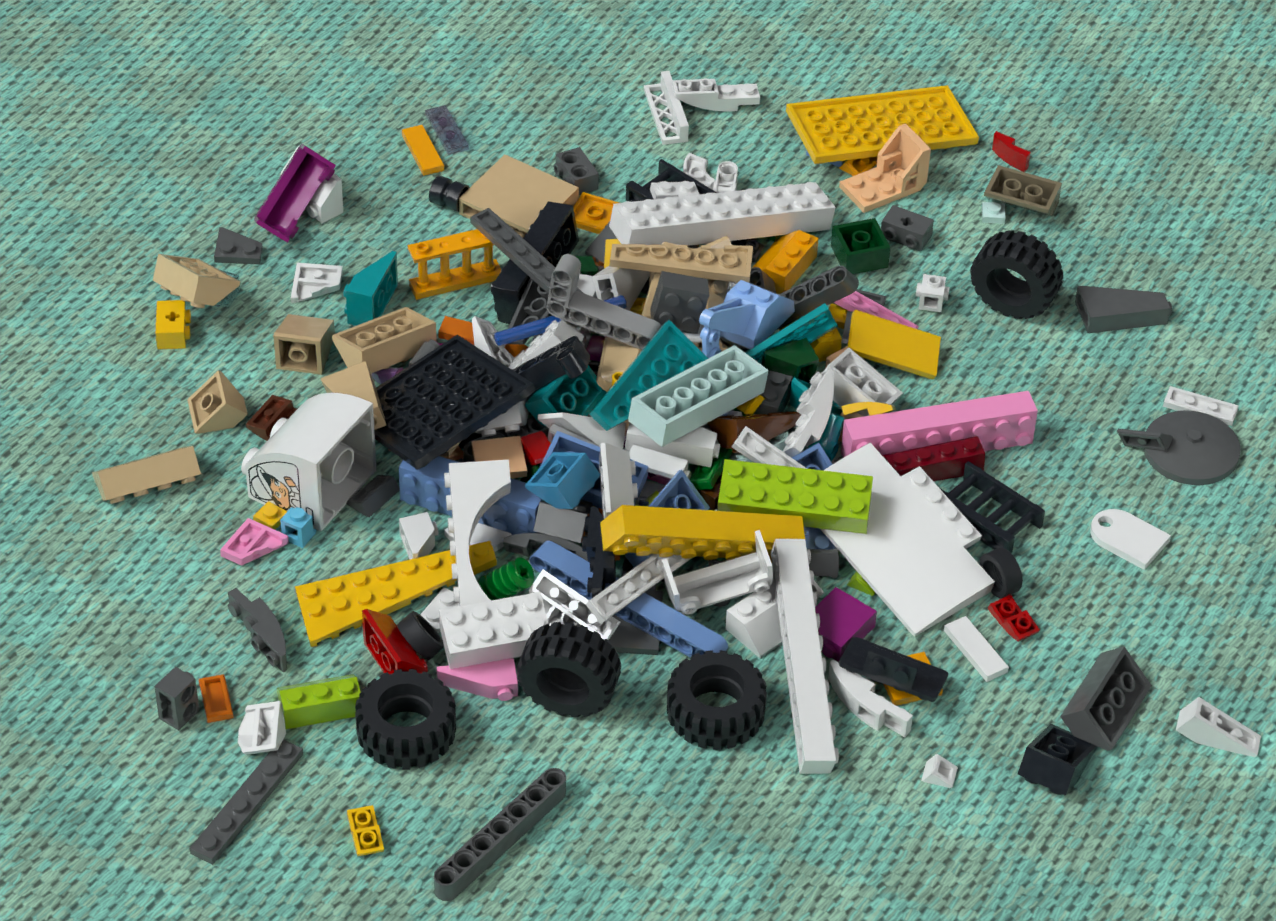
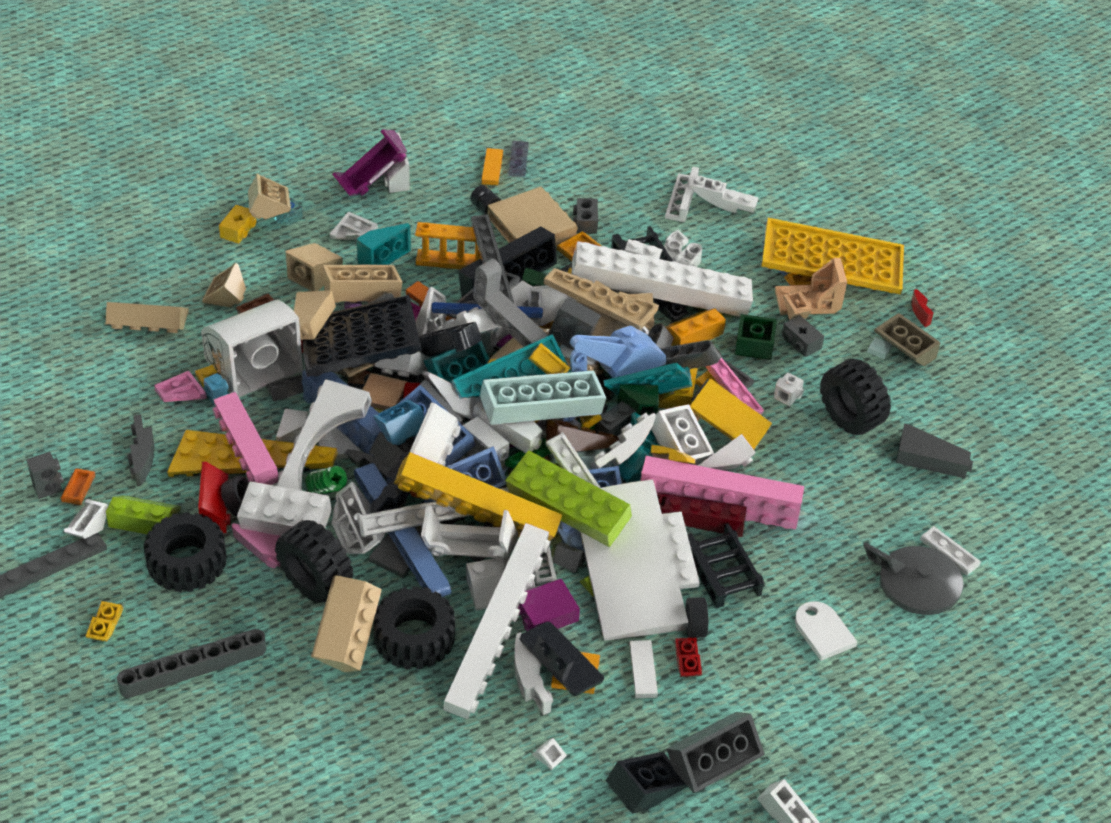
camera: 25 degrees right, 0 degrees up
(236, 248) = (319, 189): dark grey wing -> none
(385, 569) = (245, 440): none -> bright pink brick
(651, 721) = (346, 623): none -> tan slope
(680, 352) = (548, 361): none -> yellow tile
(881, 195) = (796, 305): none -> light nougat slope
(921, 387) = (731, 456): none -> white slope

